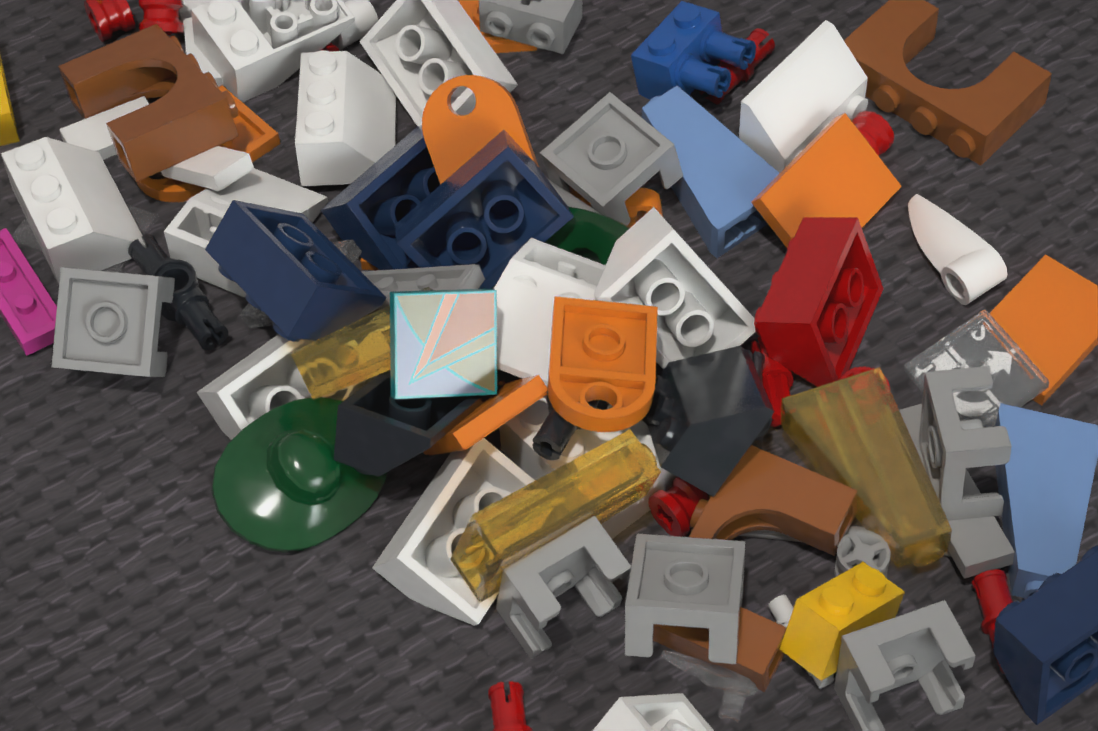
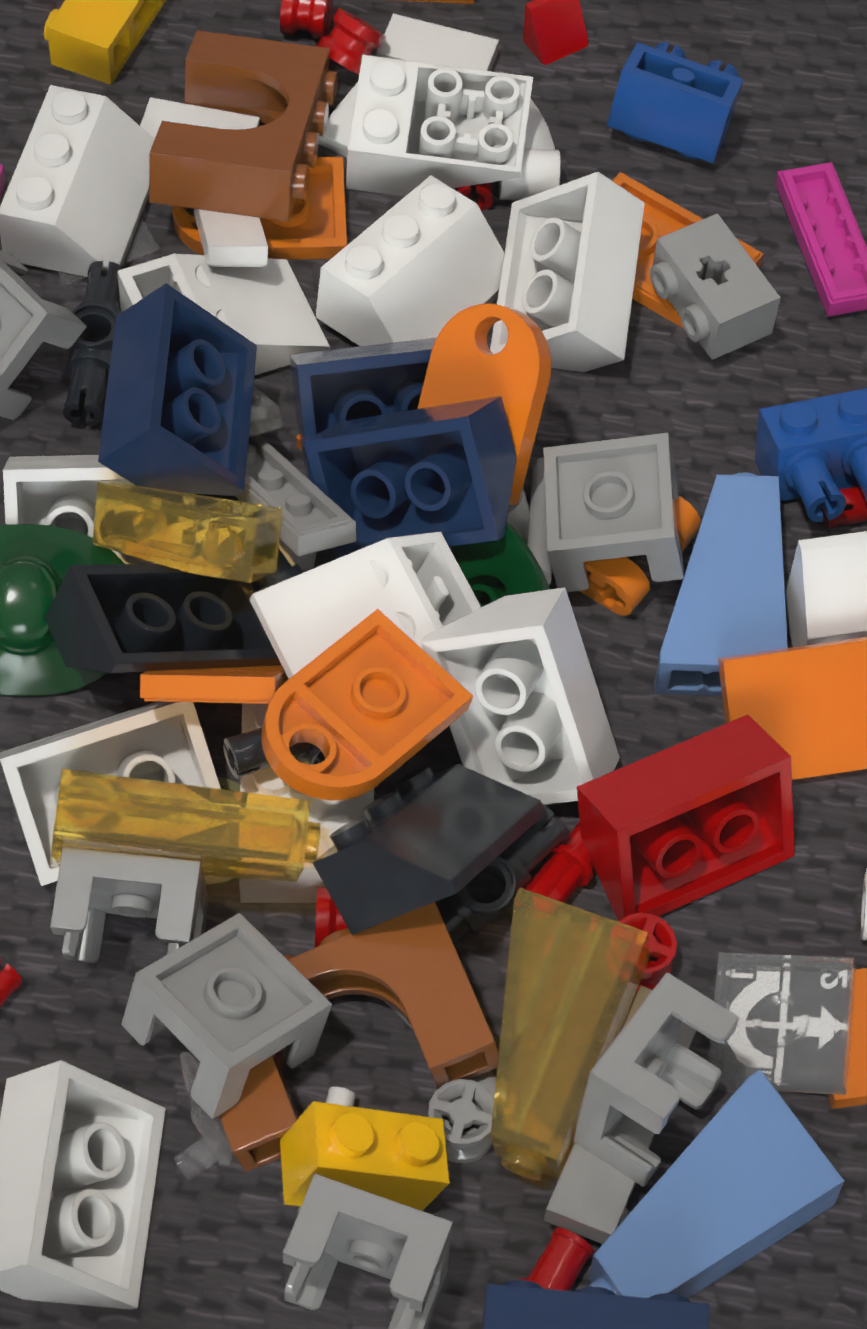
camera: 35 degrees right, 5 degrees up
(443, 343) = (222, 576): tile -> none

